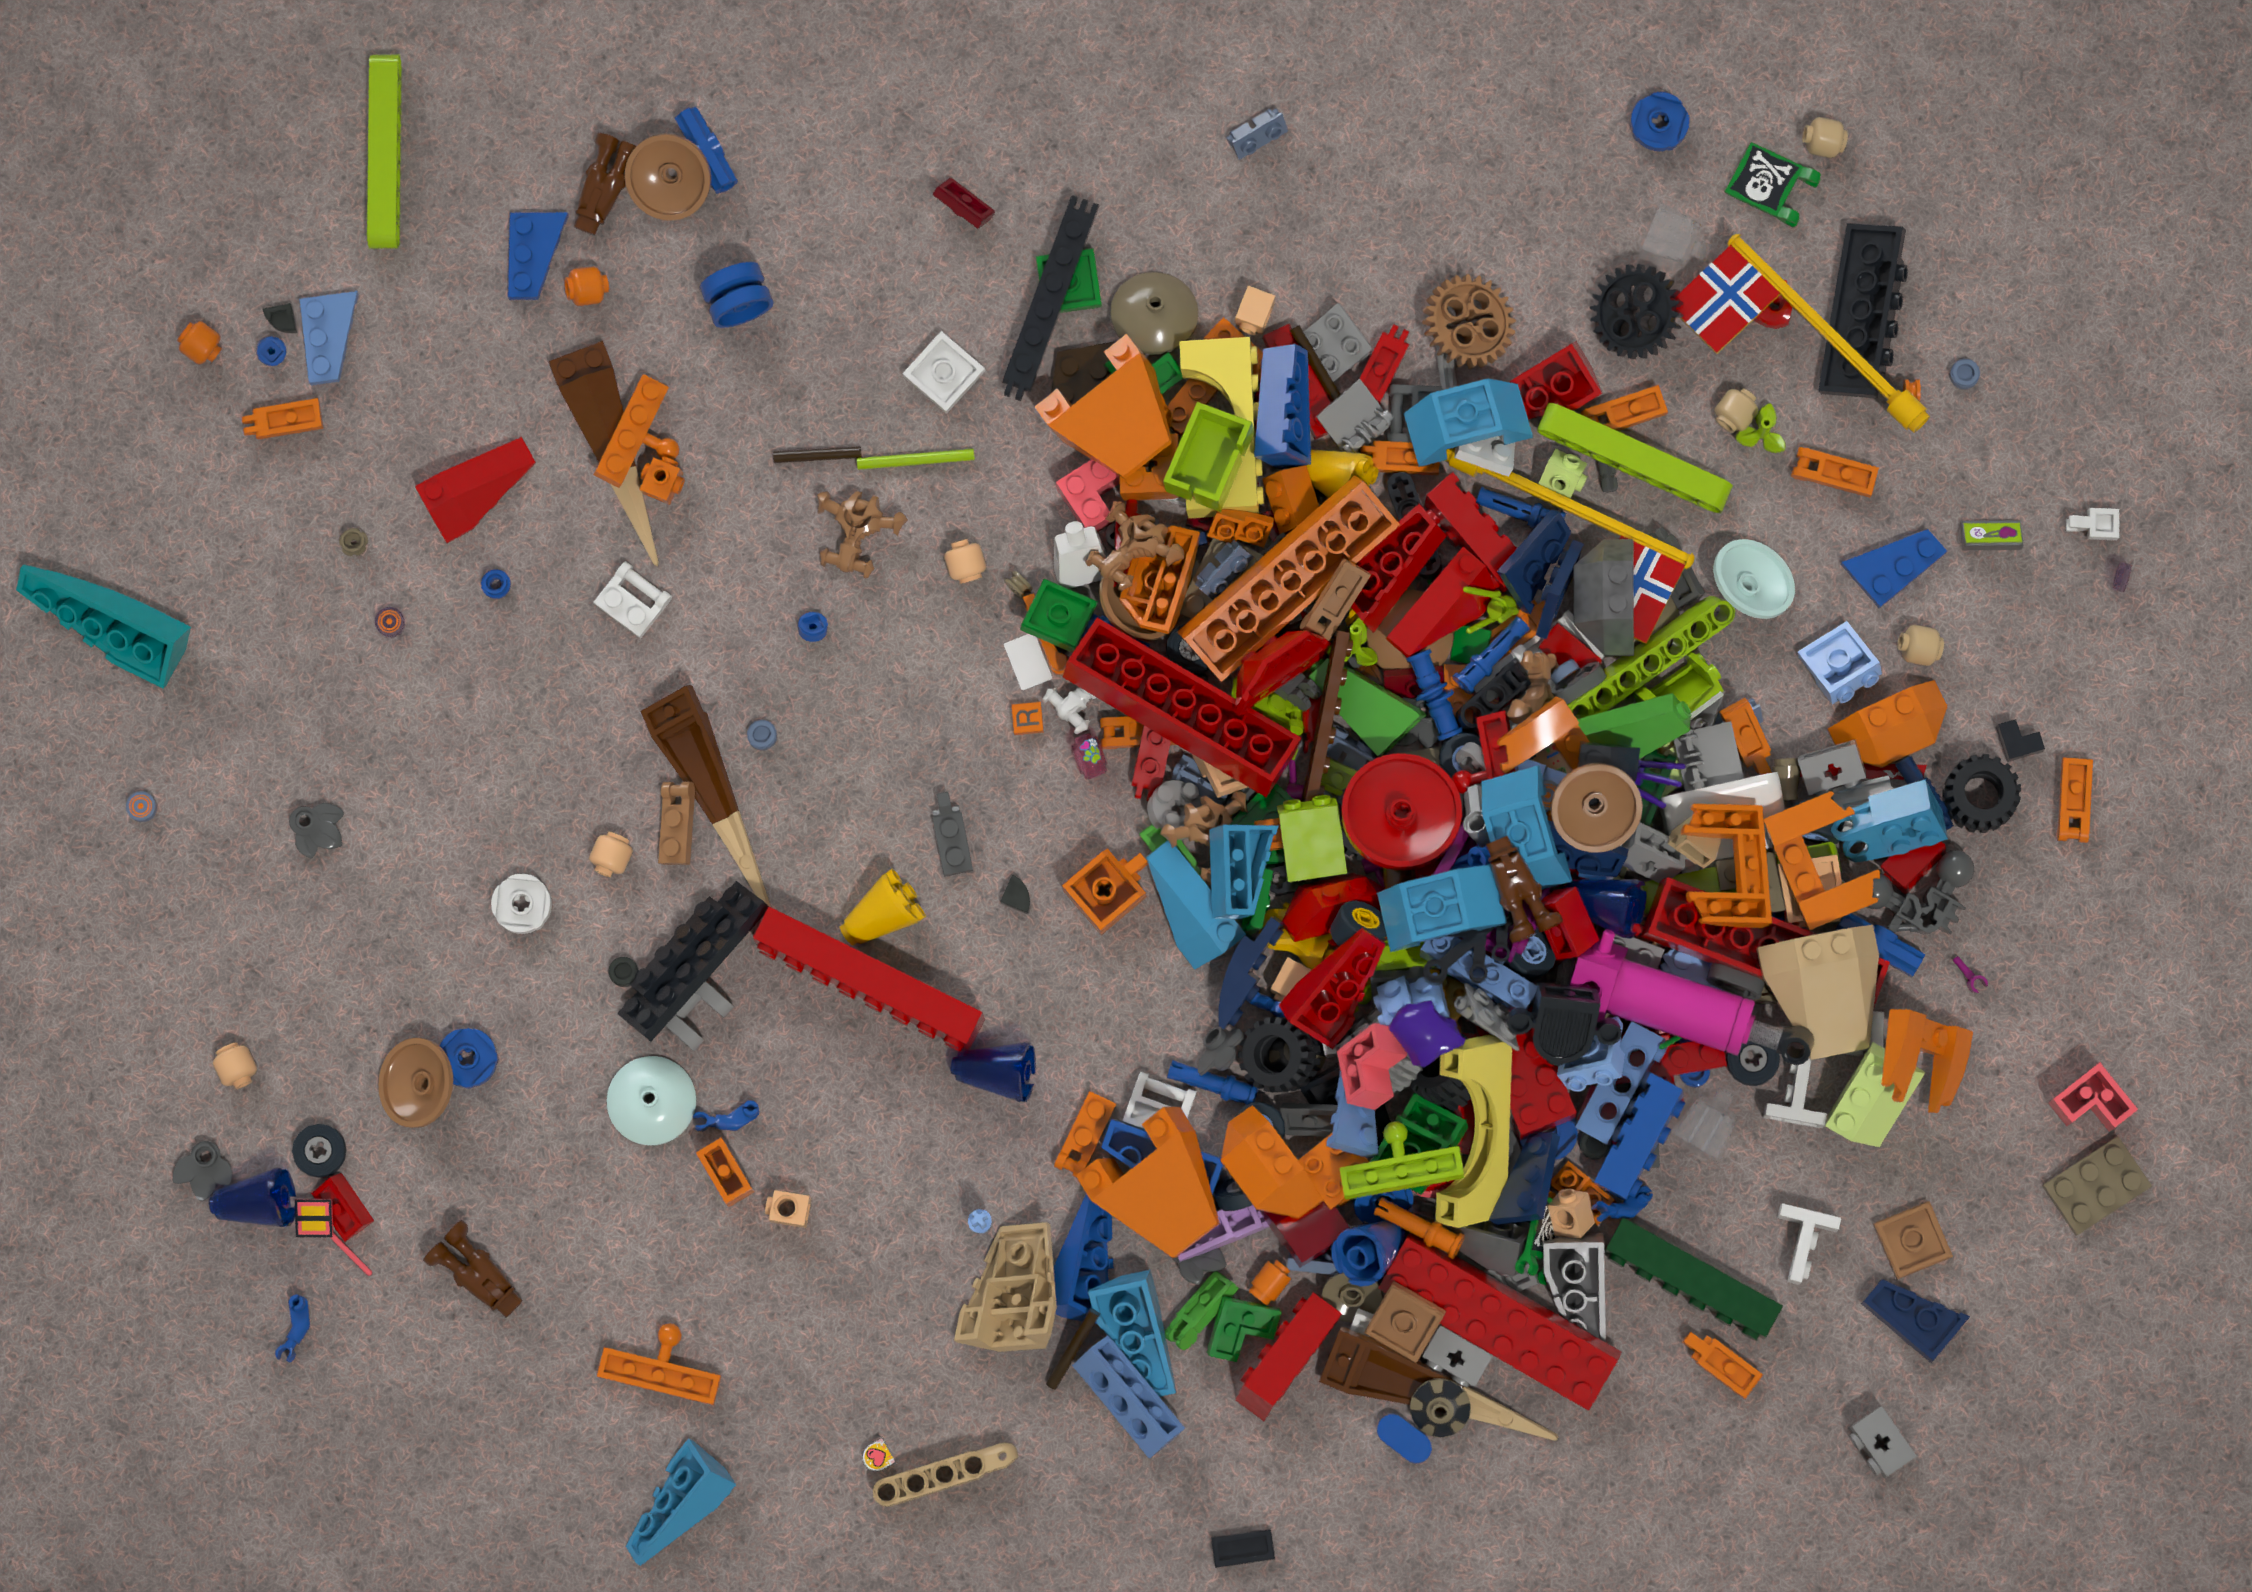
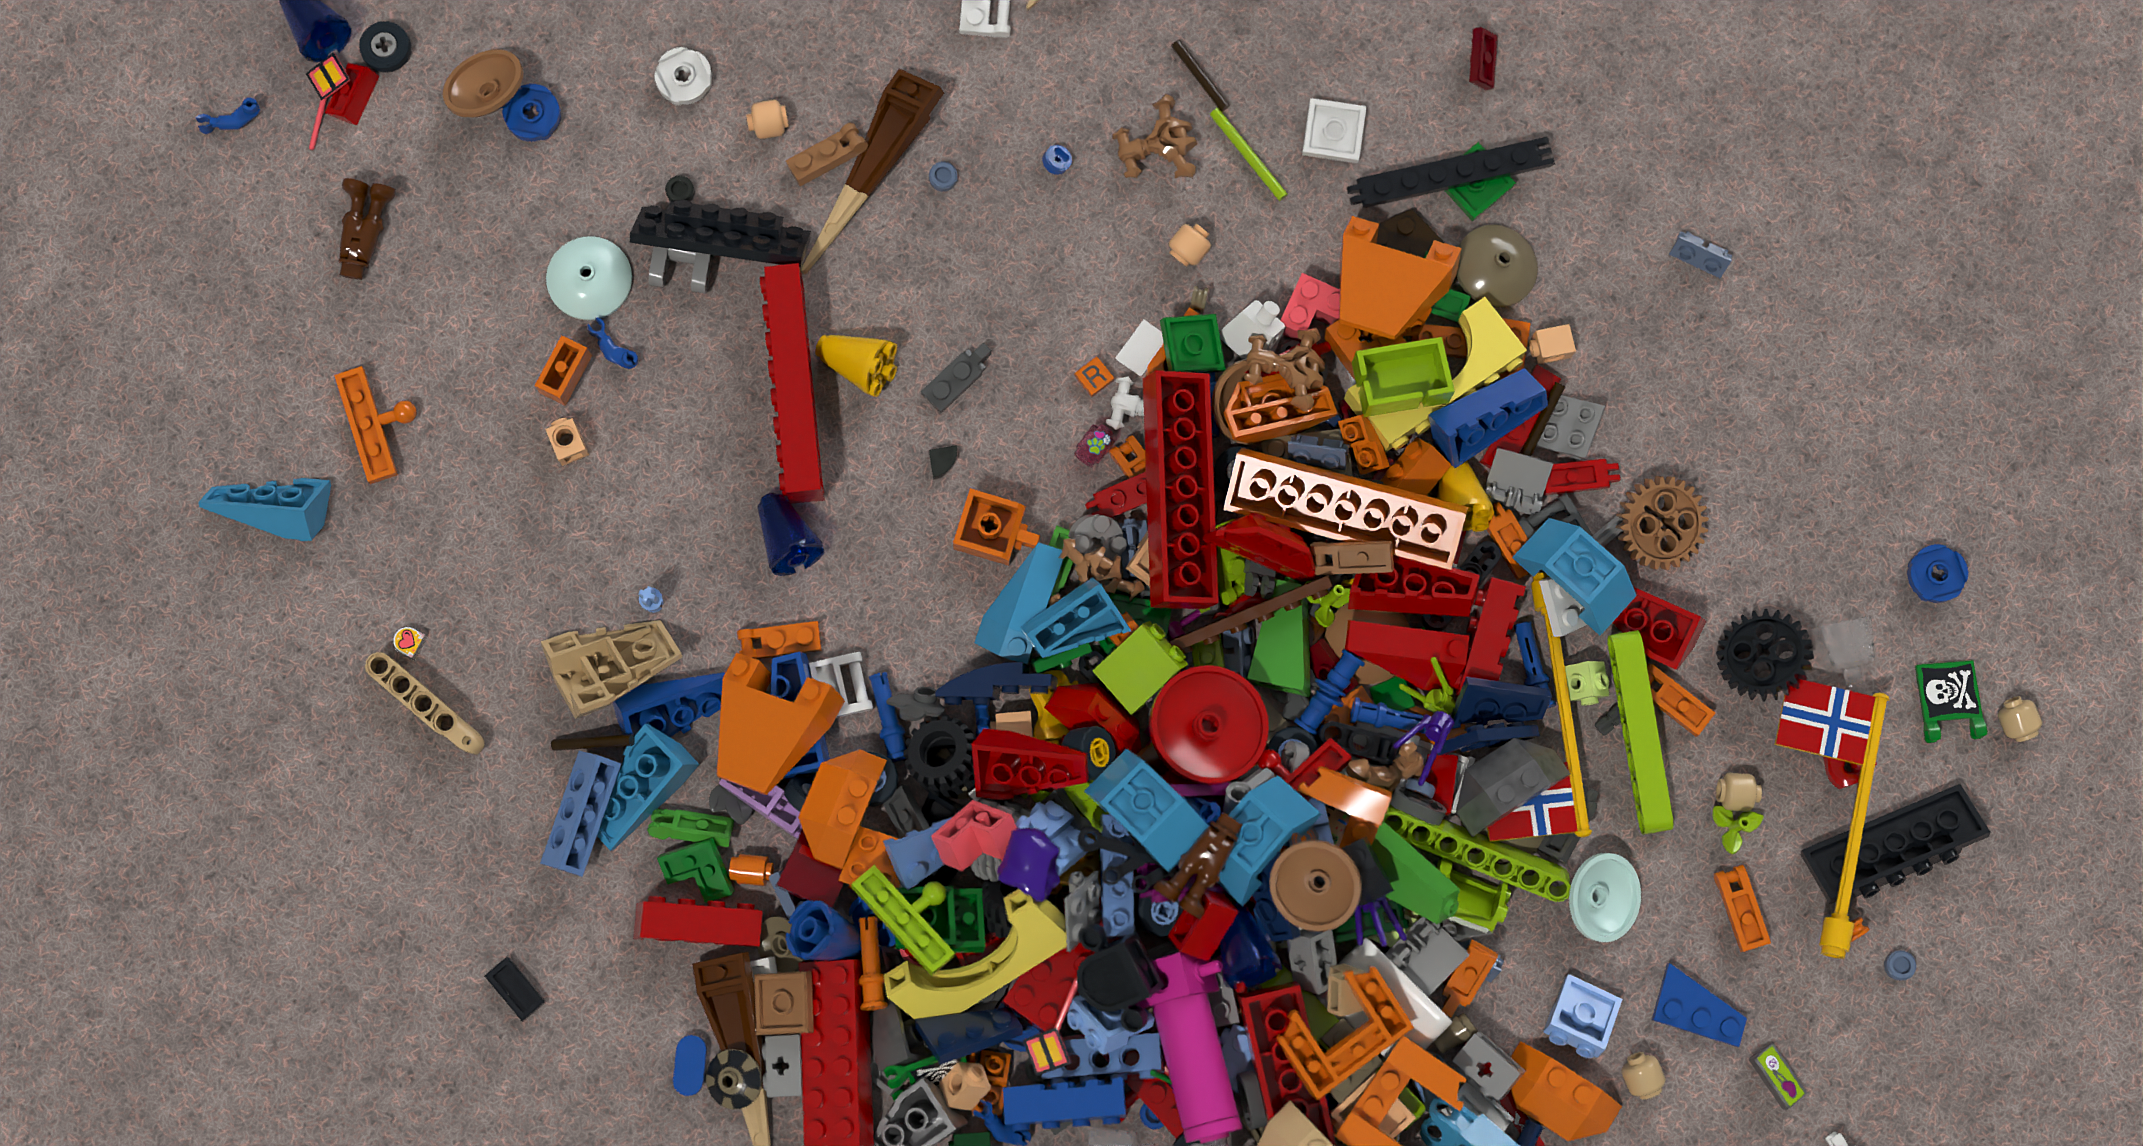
camera: 45 degrees right, 0 degrees up
(1526, 624) = (1437, 730): none -> dark purple plant
(1586, 1122) = (1047, 1048): none -> piece

